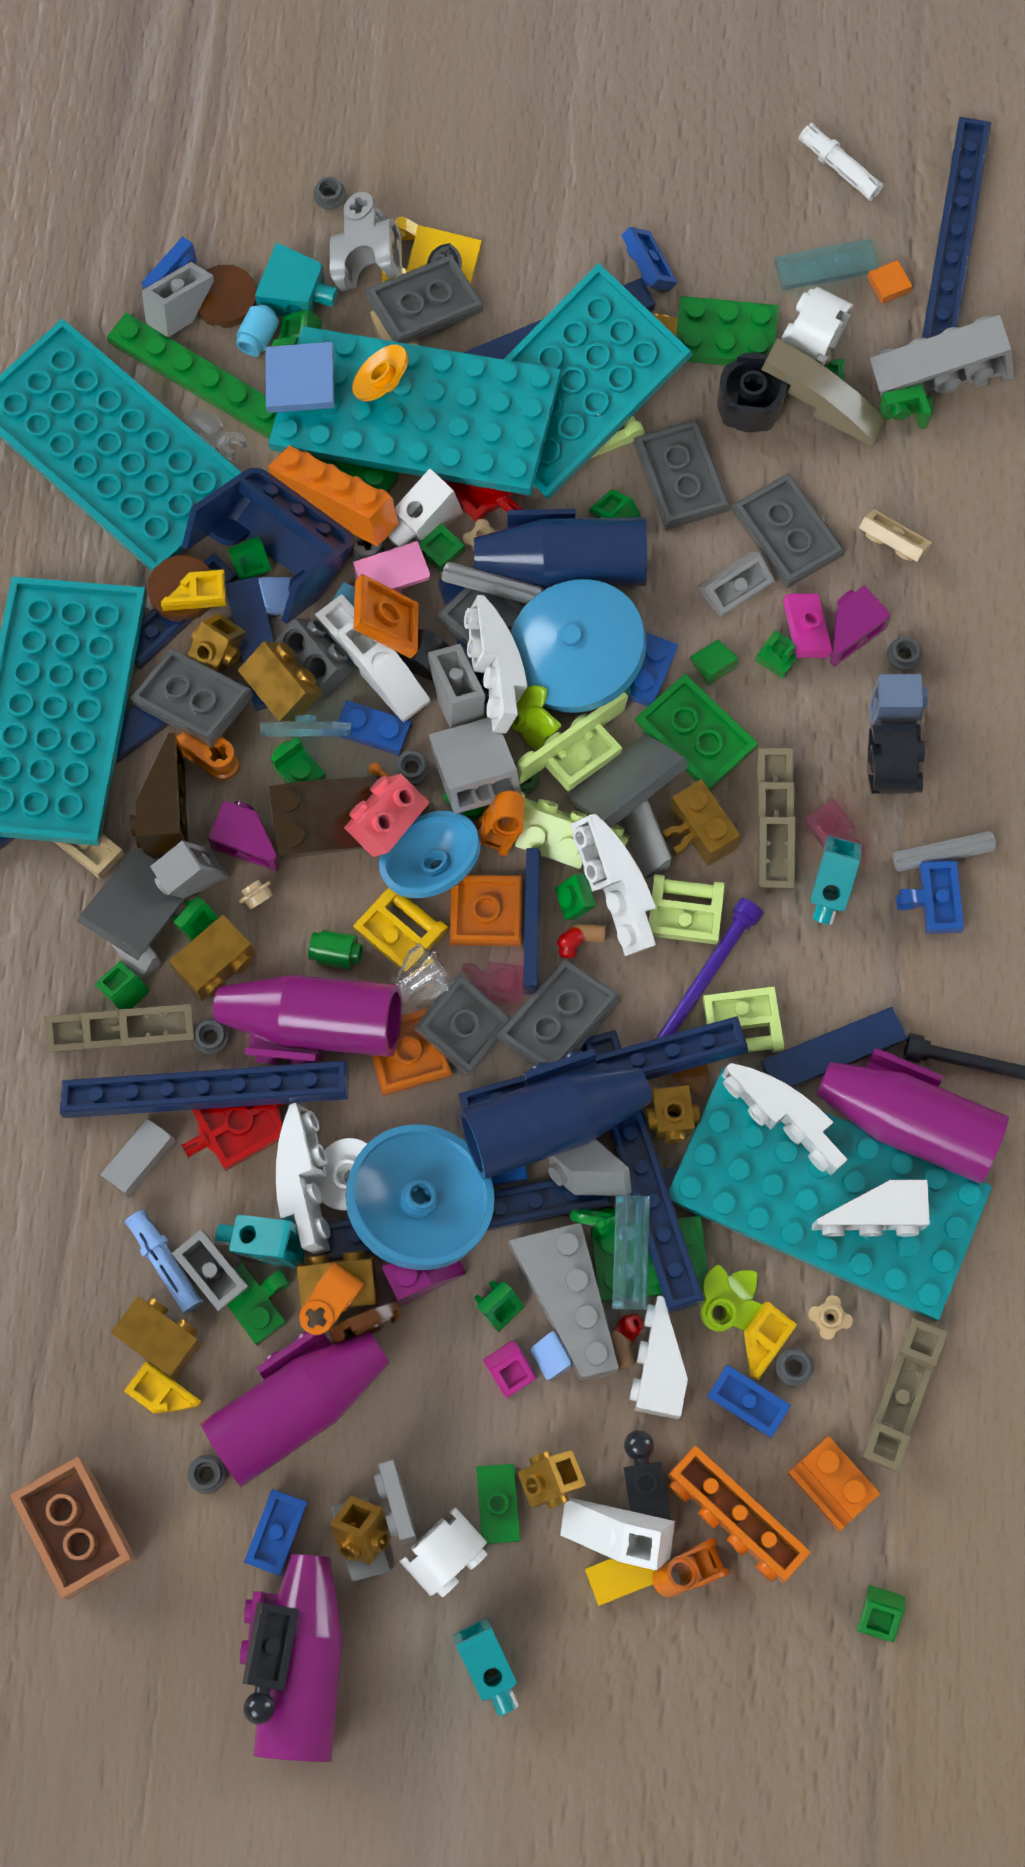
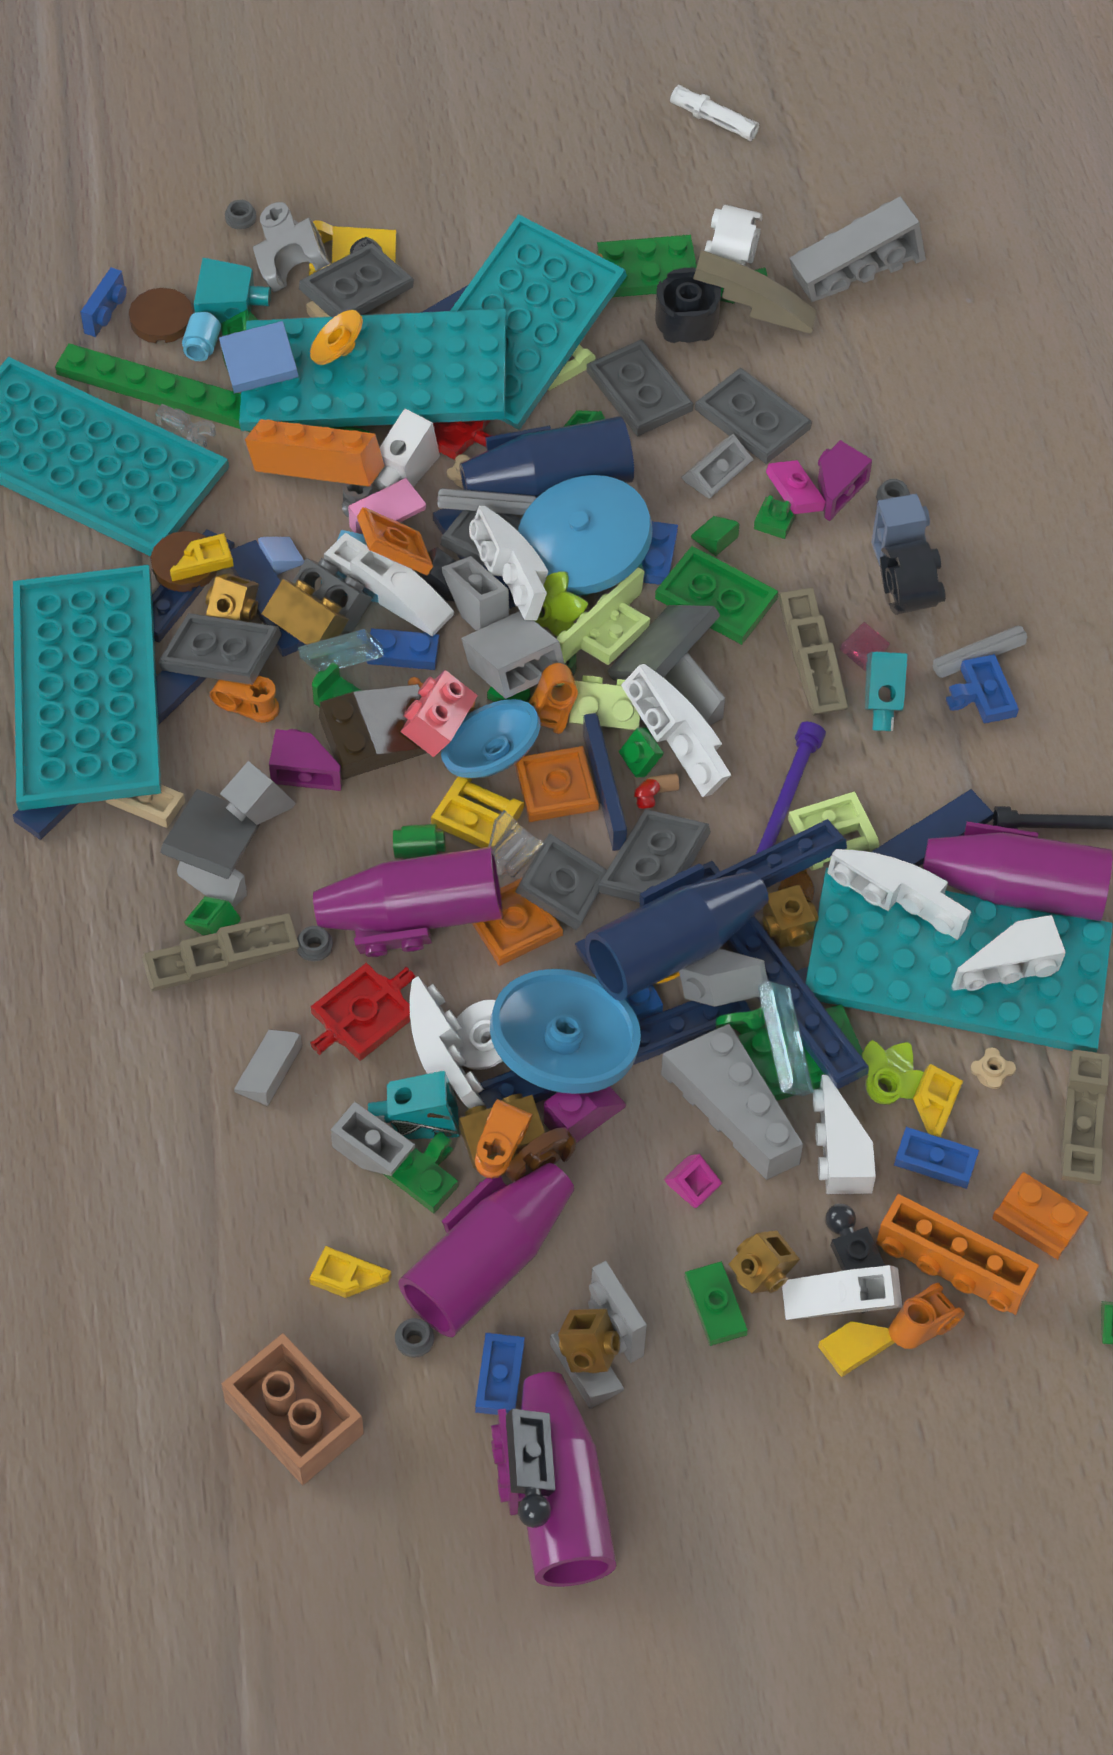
camera: 15 degrees left, 15 degrees down
(156, 1249) = (289, 1125): light blue pin -> none
(156, 1336) = (332, 1217): pearl gold brick -> none
(162, 803) = (216, 741): dark brown slope -> none
(176, 298) = (116, 321): light grey slope -> none
(195, 918) = (274, 843): green tile -> none
(205, 1089) = (321, 986): dark blue tile -> none
(213, 958) = (299, 870): pearl gold brick -> none
(249, 558) = (244, 525): green tile -> none
(256, 894) = (327, 809): tan plate -> none
(287, 525) = (267, 491): dark blue windscreen -> none
(412, 758) = (454, 667): dark grey plate -> none
(441, 547) = (428, 482): green plate -> none
(444, 1553) = (677, 1350): white brick -> none
(481, 1652) = (739, 1432): teal torso -> none
(499, 982) = (588, 839): clear pink plate -> none
(499, 1305) = (667, 1121): green tile -> none
(551, 1356) = (732, 1156): light blue slope -> none
(623, 1337) = (801, 1119): arm -> none
(649, 259) = (554, 212): blue plate -> none
(684, 919) = (752, 753): yellowish green plate -> none
(703, 824) = (745, 667): pearl gold brick -> none
(806, 1367) = (973, 1110): dark grey plate -> none
(825, 264) = (735, 192): clear light blue tile -> none
(885, 530) = (841, 397): tan plate -> none
(889, 281) = (787, 200): orange tile -> none
(906, 401) = (833, 291): green bracket -> none
(956, 226) = (835, 143): dark blue tile -> none

